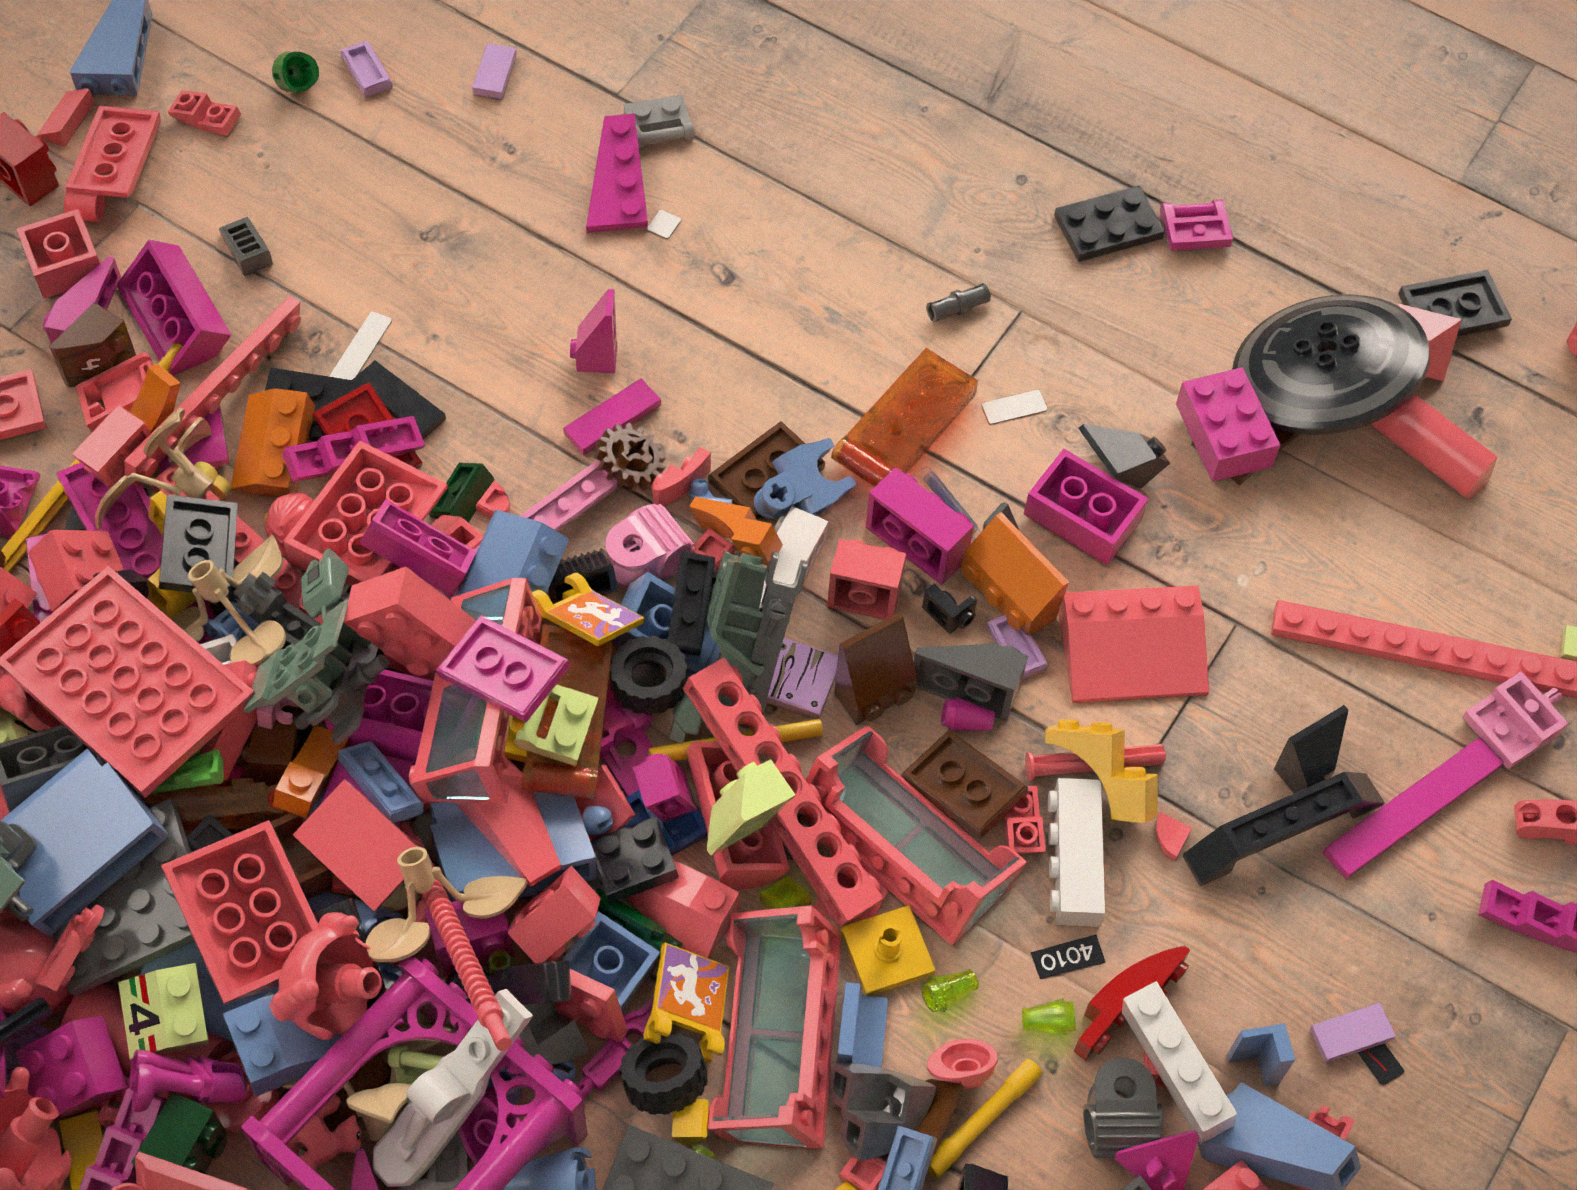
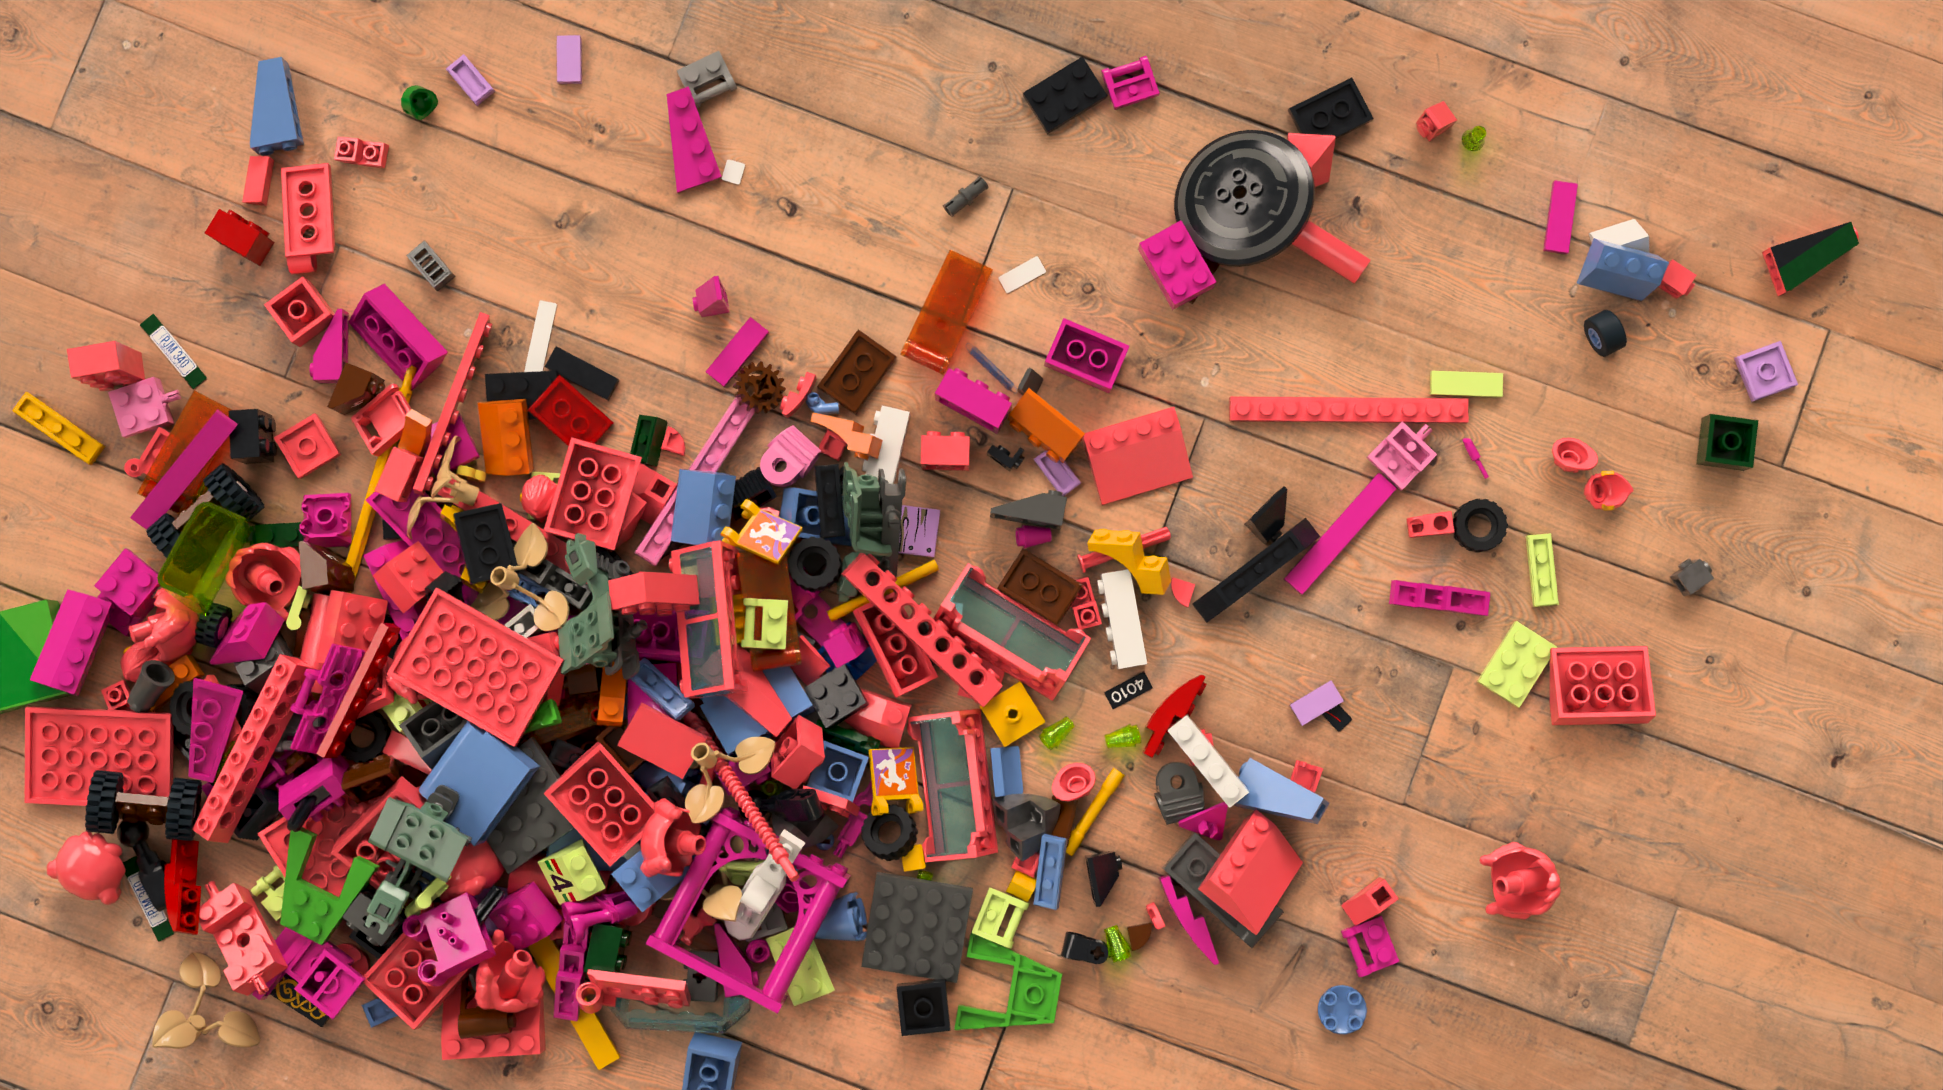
camera: 10 degrees left, 25 degrees up
(75, 938) = (502, 845): coral hinge -> none
(255, 593) = (537, 575): dark grey gear -> none
(329, 452) = (559, 435): dark pink slope -> none
(418, 546) = (637, 512): dark pink slope -> none
(503, 668) = (724, 615): tile -> none
(597, 820) = (806, 673): medium blue hinge -> none
(747, 805) = (902, 654): yellowish green slope -> none
(784, 895) = (939, 695): clear neon green plate -> none
(801, 483) = (884, 384): medium blue piece -> none
(875, 670) = (967, 526): reddish brown slope -> none
(1127, 454) = (1106, 306): slope -> none
(1269, 1046) = (1266, 733): medium blue panel -> none

